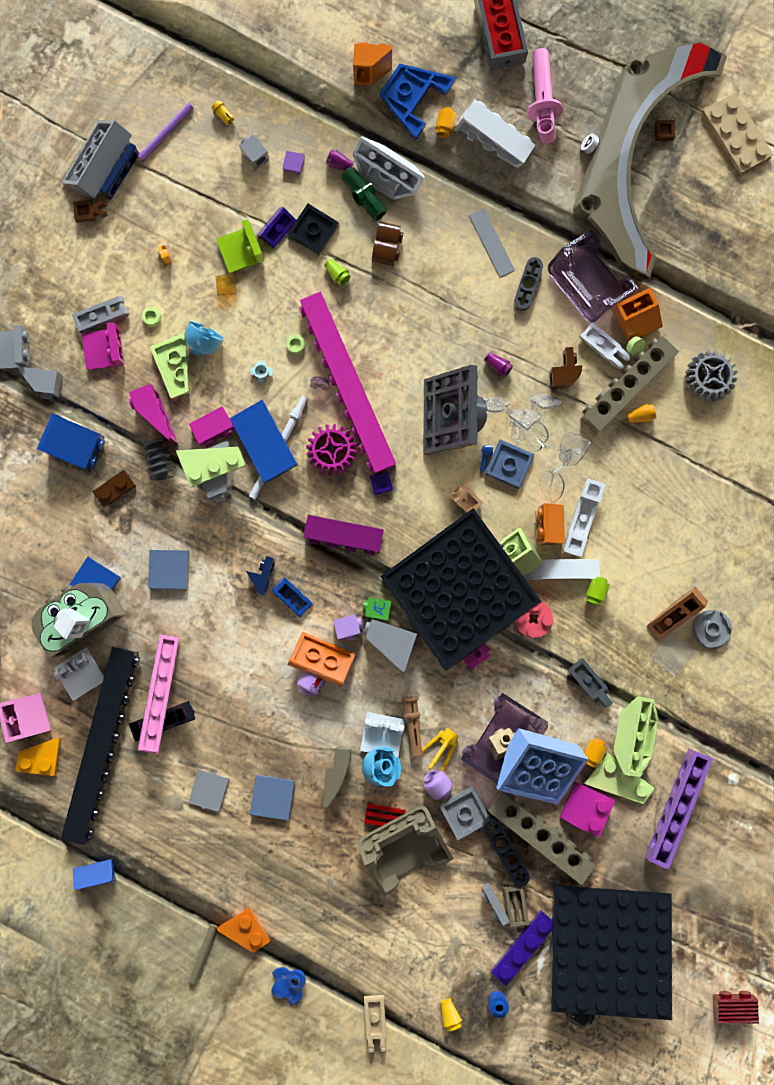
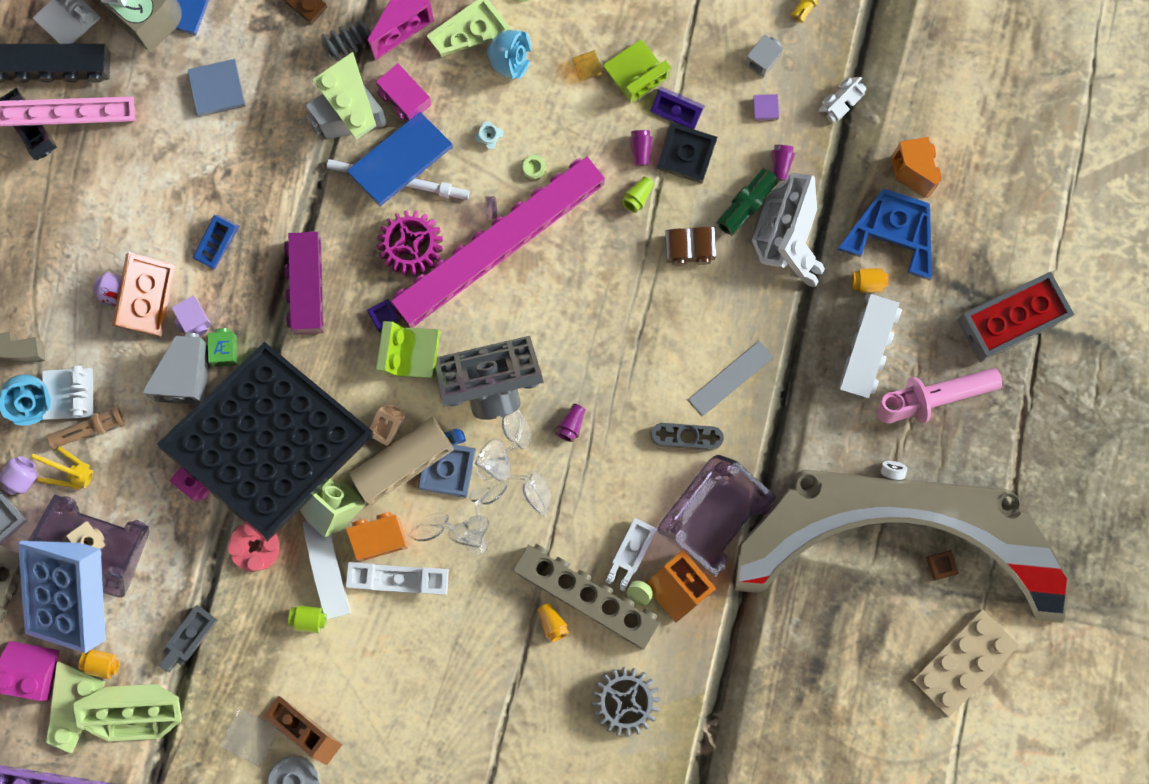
camera: 75 degrees right, 5 degrees down
(262, 580) = (226, 199): dark blue slope -> none
(297, 98) = (850, 92): none -> white hinge
(300, 261) = (640, 145): none -> magenta cone
(416, 468) = (408, 351): none -> lime bracket
(419, 164) = (800, 257): none -> white hinge
(496, 494) = (401, 461): none -> tan brick
(566, 375) = (579, 515): reddish brown brick -> none

